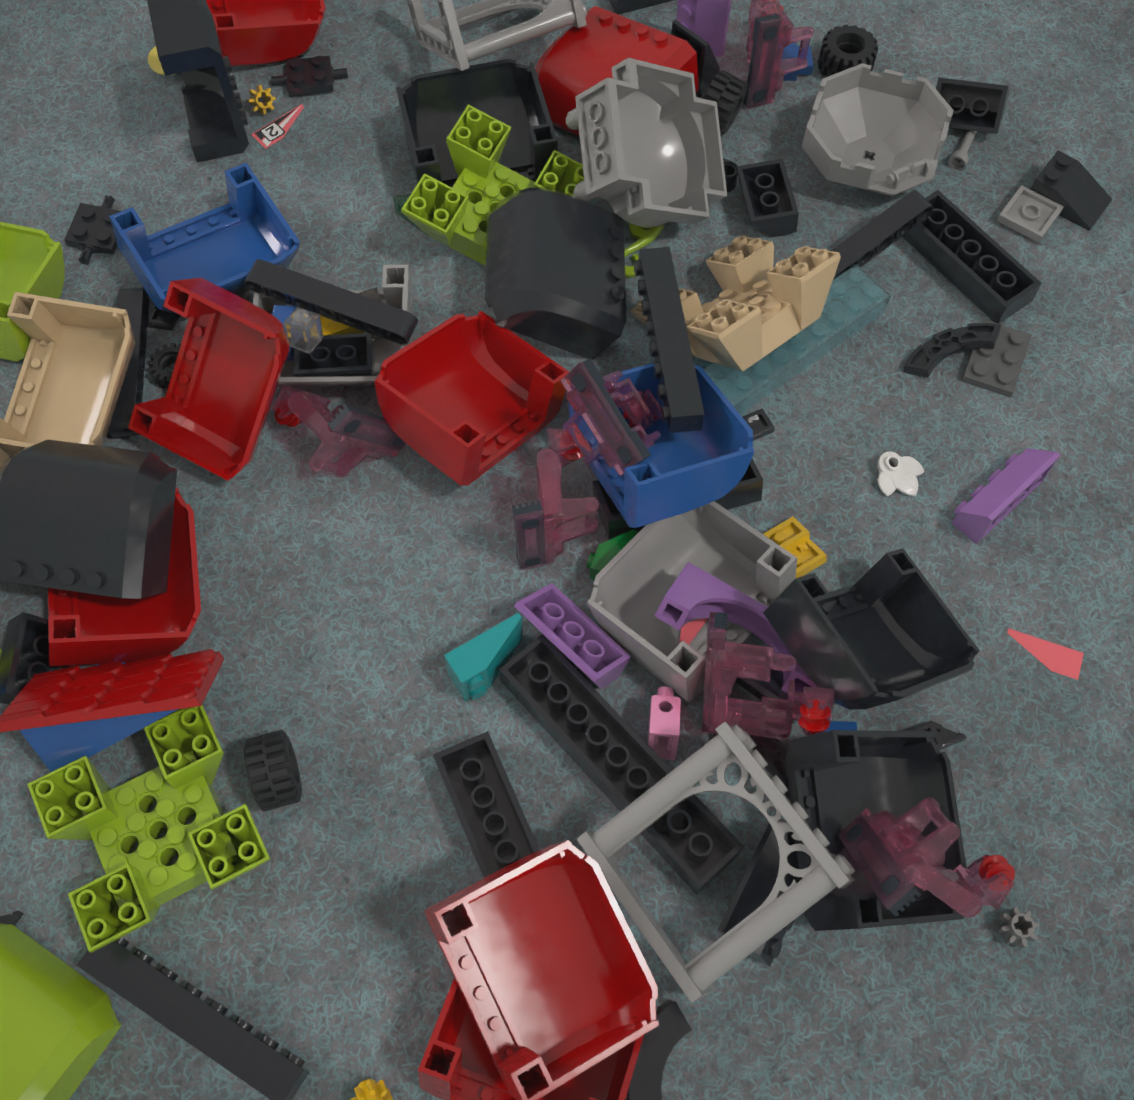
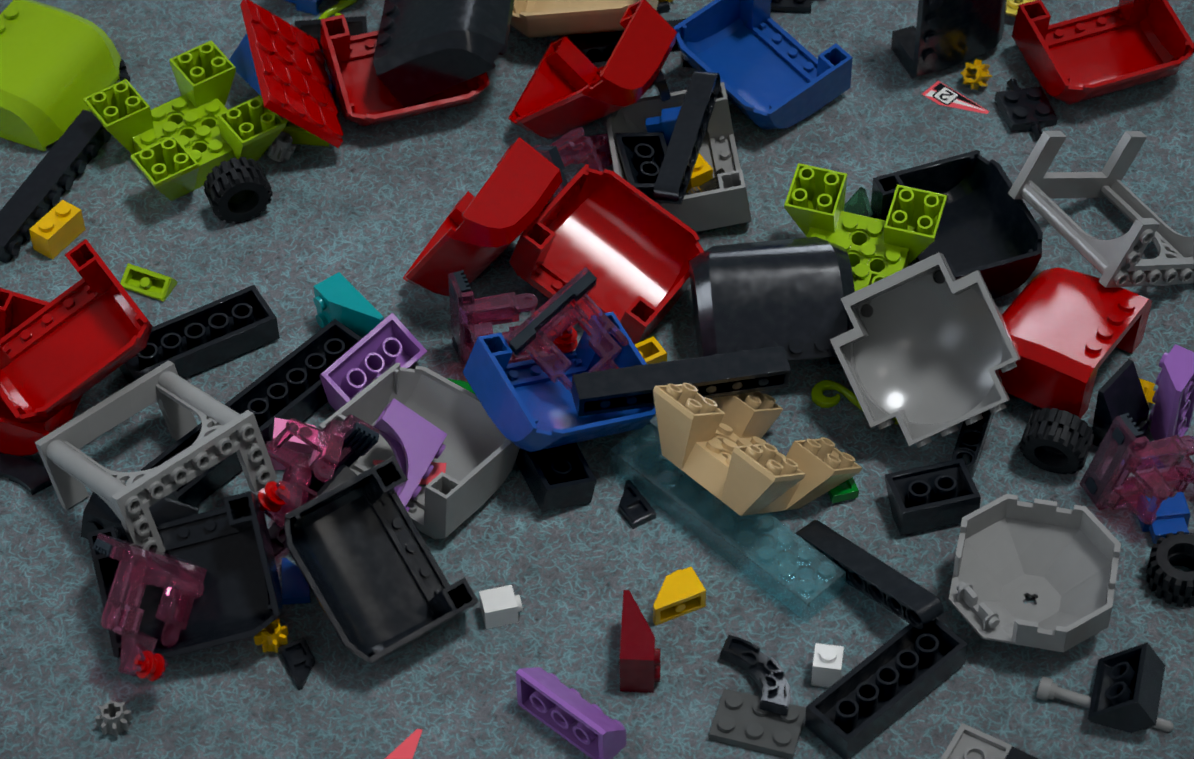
camera: 85 degrees right, 15 degrees down
(277, 1001) = (57, 229): none -> yellow brick
(303, 330) = (660, 129): clear brick -> none
(378, 890) = (147, 282): none -> lime slope
(427, 496) = (490, 221): none -> red slope
(796, 540) = (489, 541): yellow slope -> none
(864, 399) = (678, 596): none -> yellow slope
(873, 544) = (499, 606): none -> white brick
(901, 476) = (588, 633): white plate -> none
(933, 432) = (638, 655): none -> dark red slope
(944, 296) = (827, 665): none -> white brick

